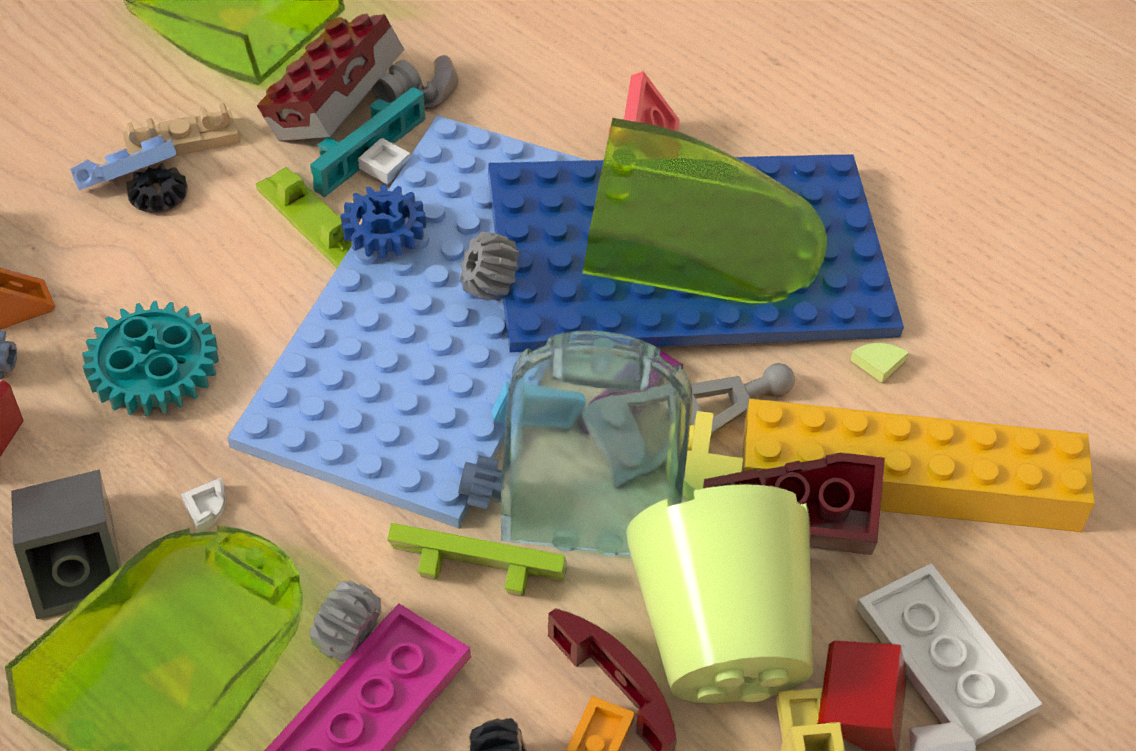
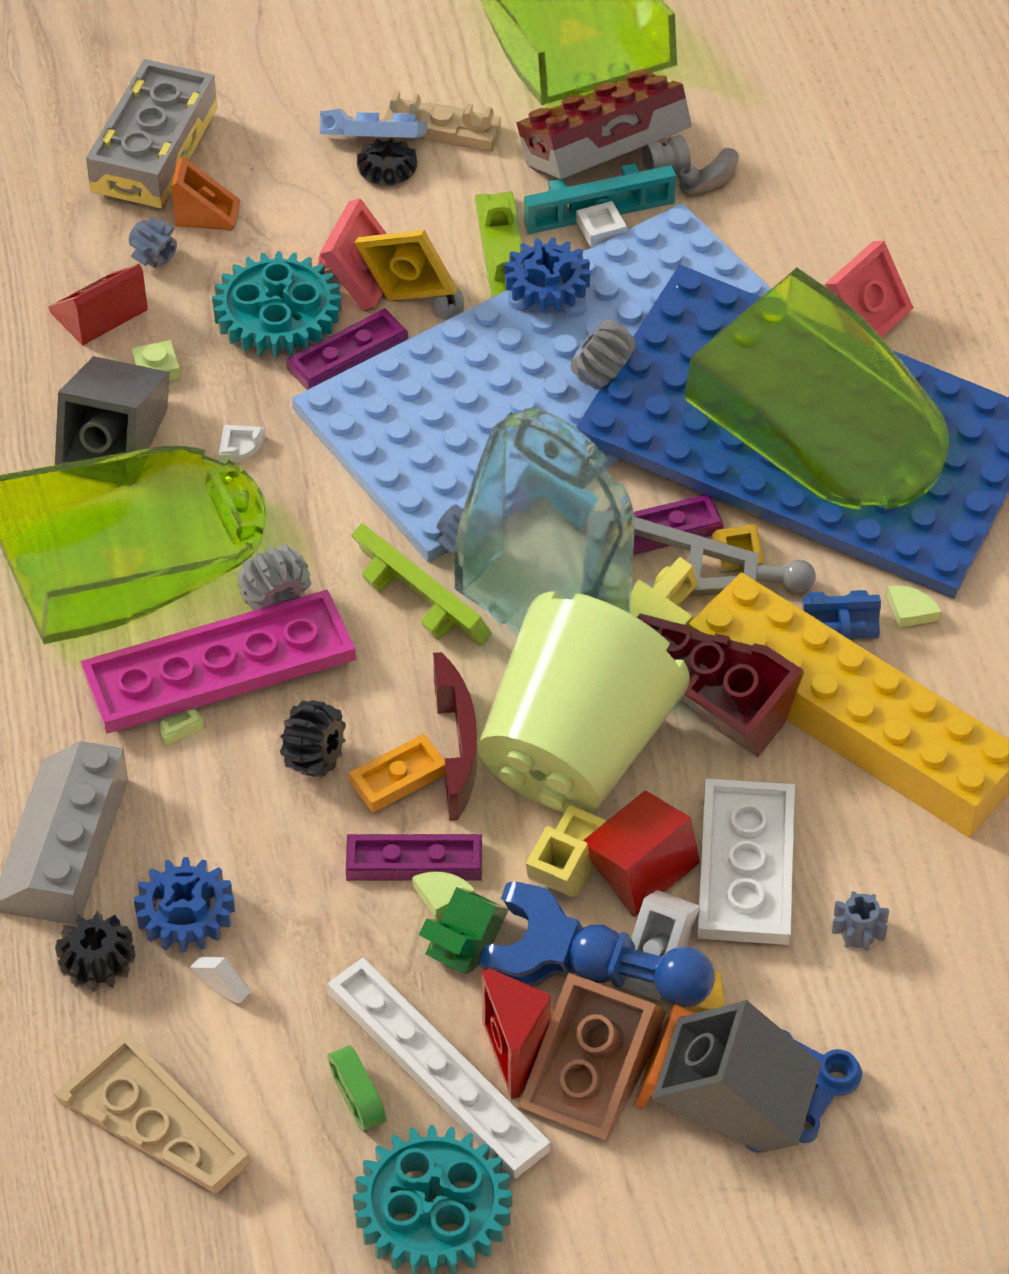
camera: 35 degrees right, 0 degrees up
(68, 461) = (158, 356): none -> yellowish green plate
(200, 278) = (344, 258): none -> coral tile
(242, 370) = (346, 349): none -> magenta tile
(256, 267) = (406, 265): none -> yellow slope
(297, 287) = (443, 310): none -> light grey hinge
(709, 369) = (742, 537): none -> yellow slope
(846, 389) = (850, 615): none -> blue hips
(1080, 656) = (860, 920): none -> sand blue gear

